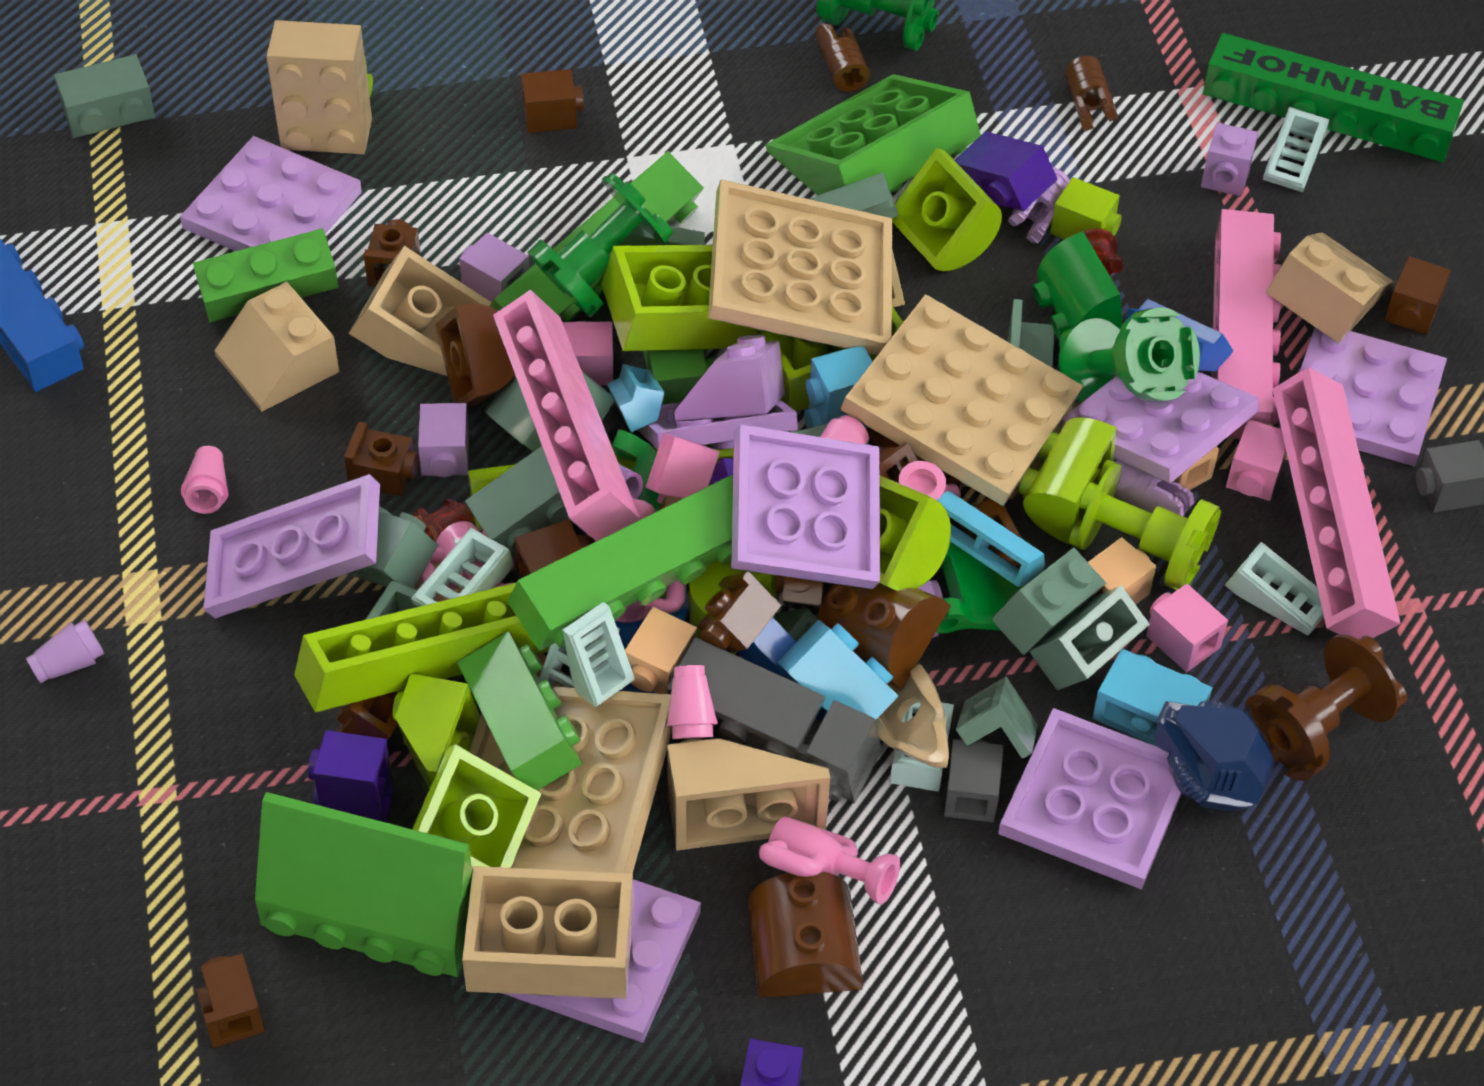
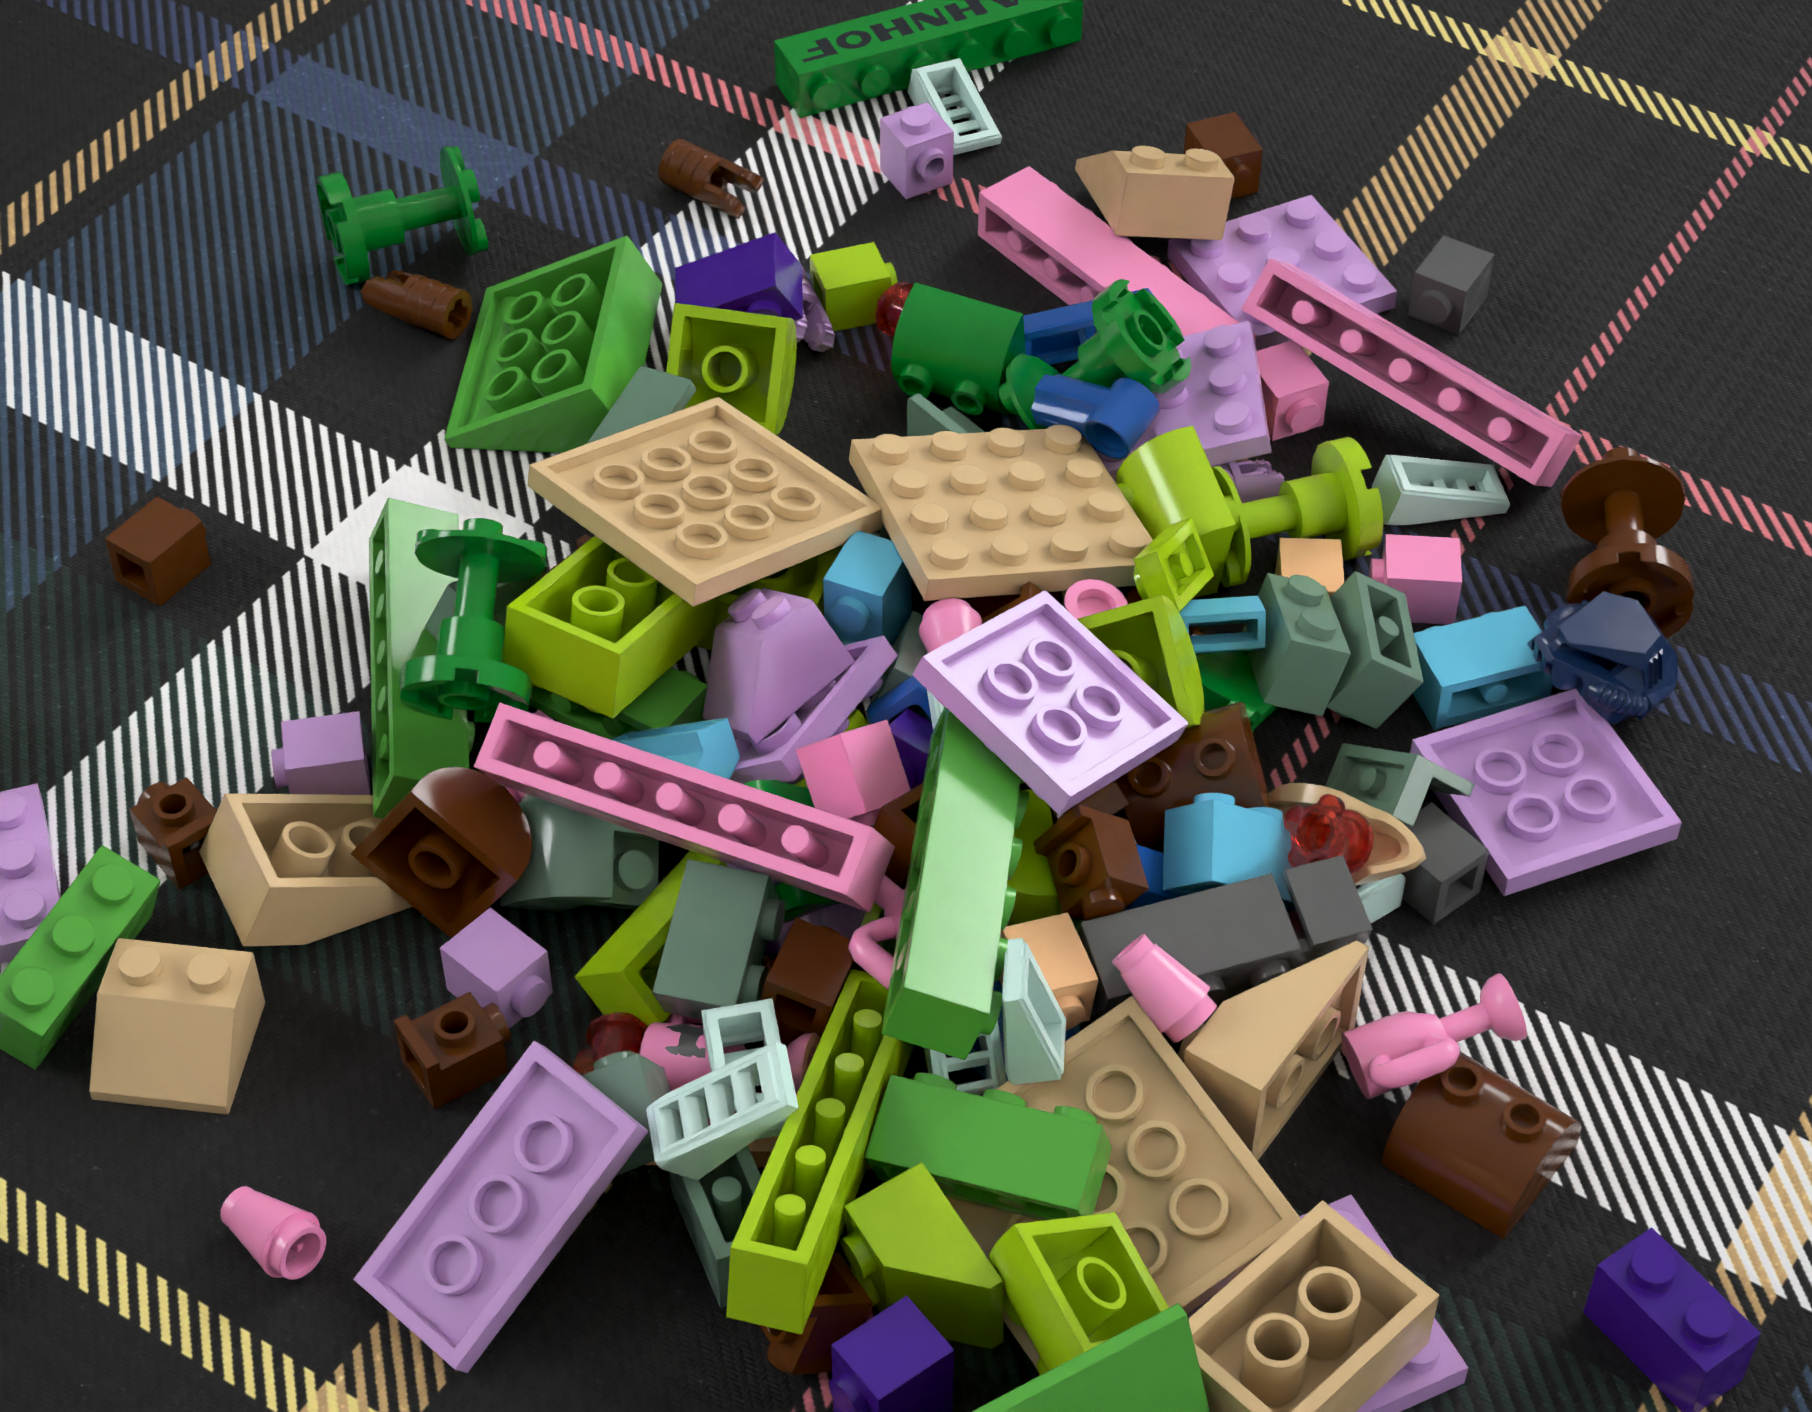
camera: 45 degrees left, 5 degrees down
(407, 579) = (679, 1119): none -> light aqua slope
(892, 707) = (1328, 832): none -> clear red brick
(1002, 498) = (1173, 565): none -> lime plate
(1092, 384) = (1105, 416): none -> blue piece

